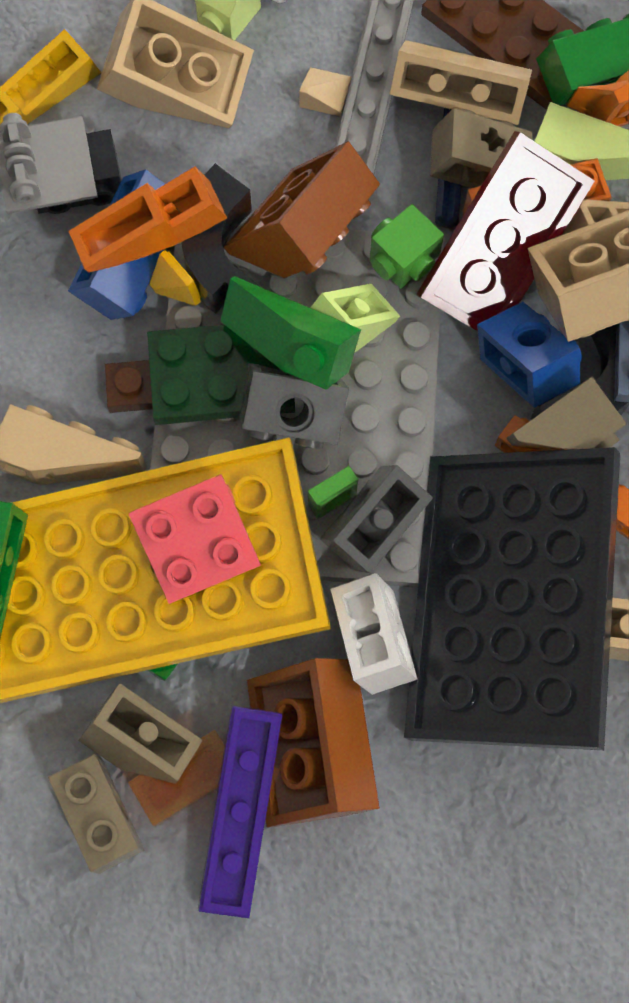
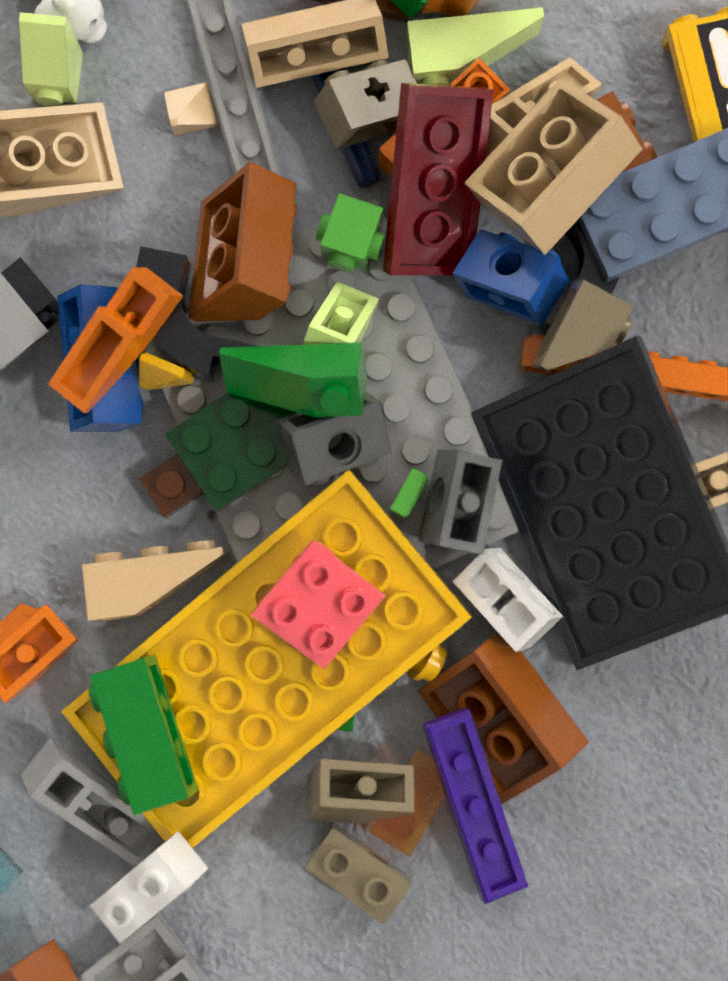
camera: 25 degrees left, 10 degrees up
(269, 655) = (429, 666): none -> yellow plate

